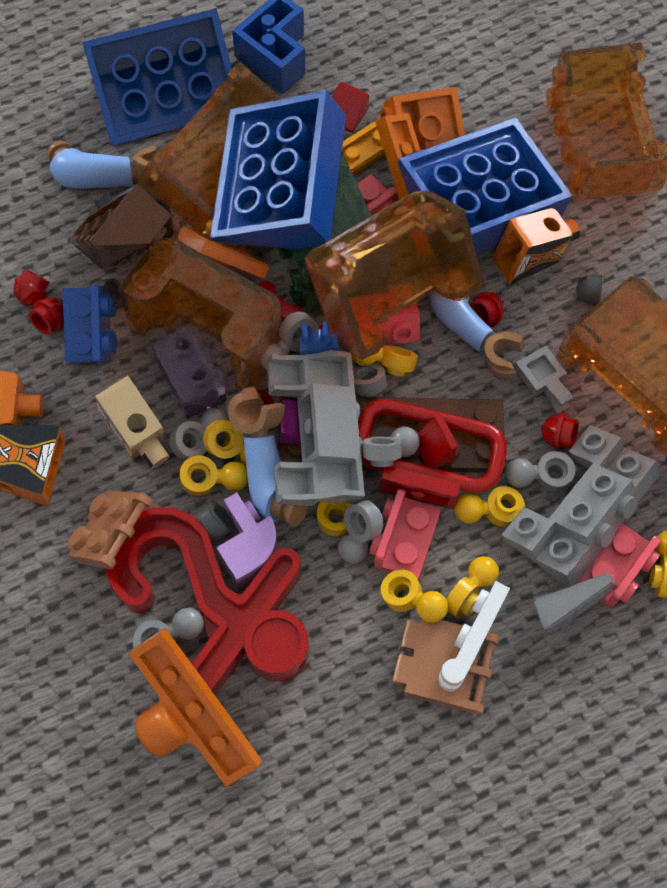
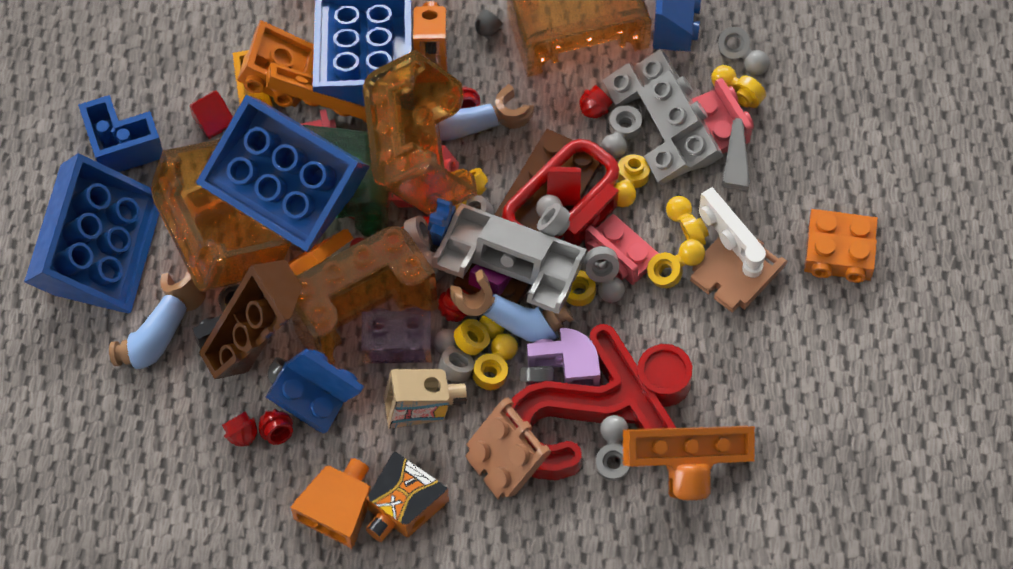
camera: 60 degrees left, 5 degrees down
(536, 764) = (841, 245): none -> orange plate
(544, 374) = (542, 90): light grey plate -> none

